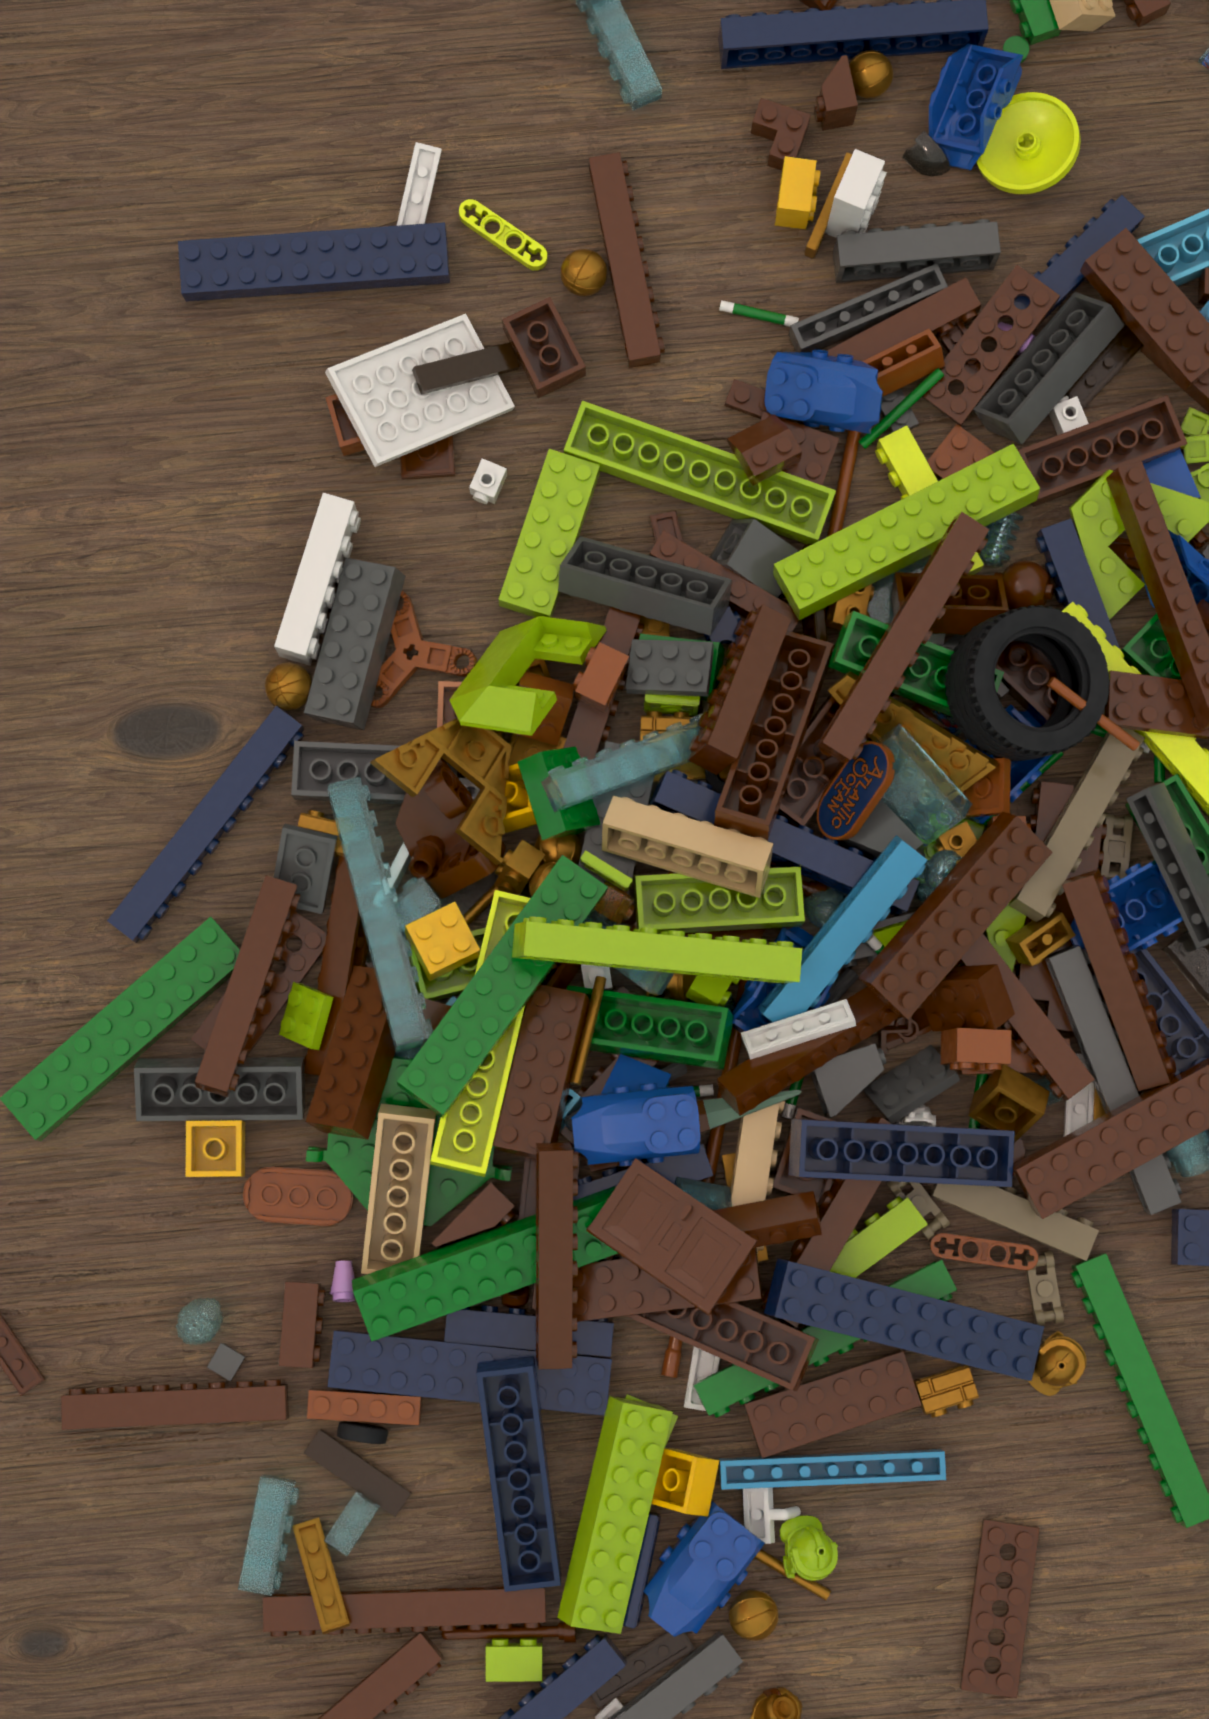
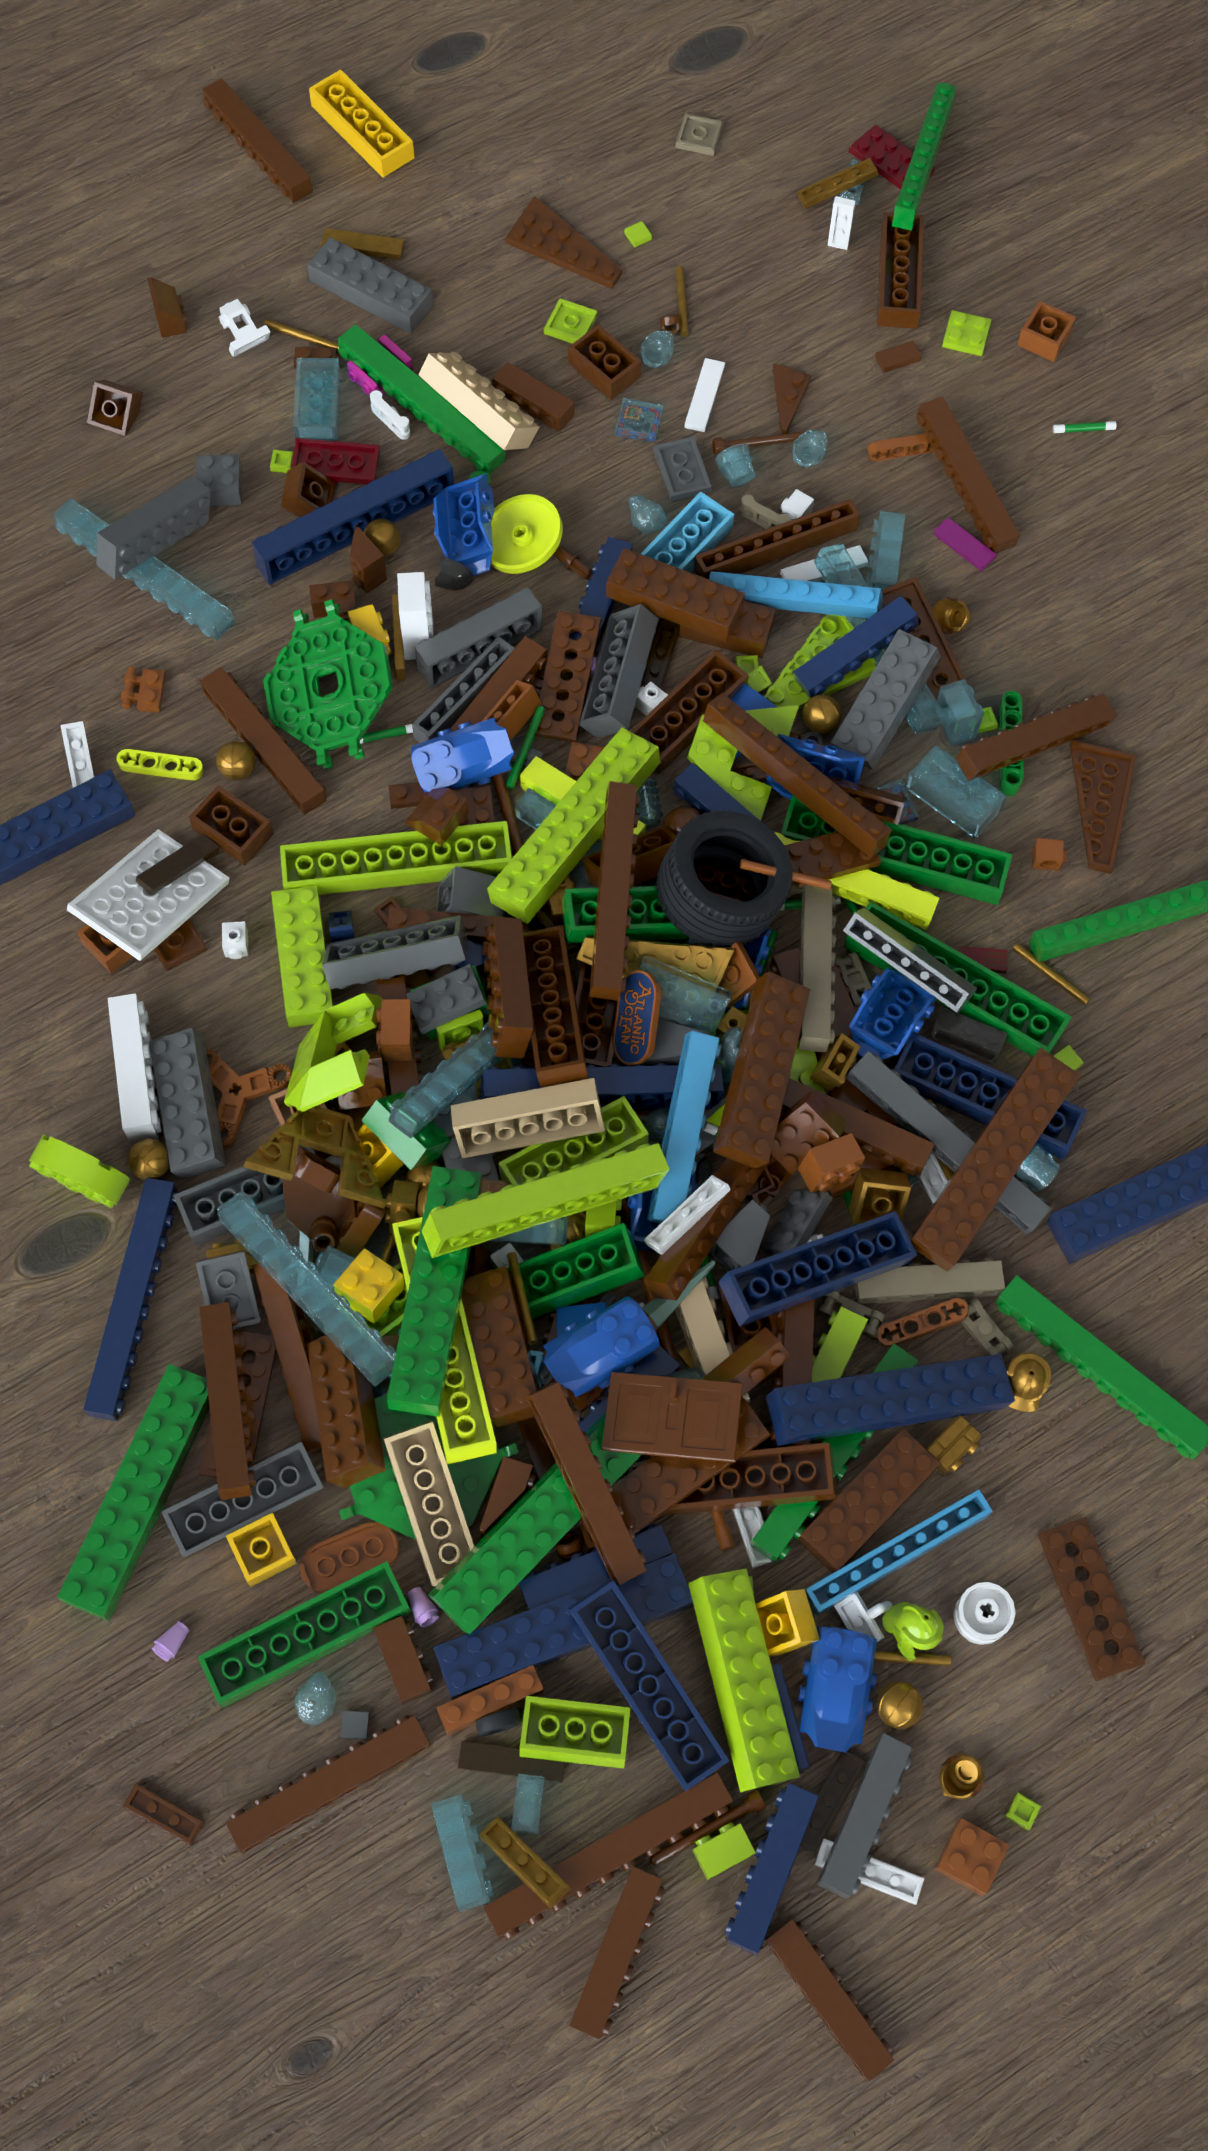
camera: 25 degrees left, 15 degrees down
(89, 1192) = (169, 1643): none -> lavender cone
(210, 670) = (78, 1171): none -> lime brick
(218, 1253) = (303, 1634): none -> green brick
(306, 1016) = (286, 1404): lime plate -> none
(429, 1480) = (574, 1732): none -> lime brick
(533, 138) = (150, 690): none -> dark orange plate
(606, 520) = (341, 925): none -> dark blue slope
(606, 871) = (488, 1167): lime tile -> none
(683, 218) = (294, 688): none -> green plate
(876, 487) = (533, 808): none -> clear light blue brick
(896, 1583) = (969, 1613): none -> white wheel
(1068, 204) = (572, 562): none -> reddish brown axle
(1119, 979) = (911, 1061): reddish brown brick -> none
(1173, 183) = (643, 518): none -> clear light blue piece

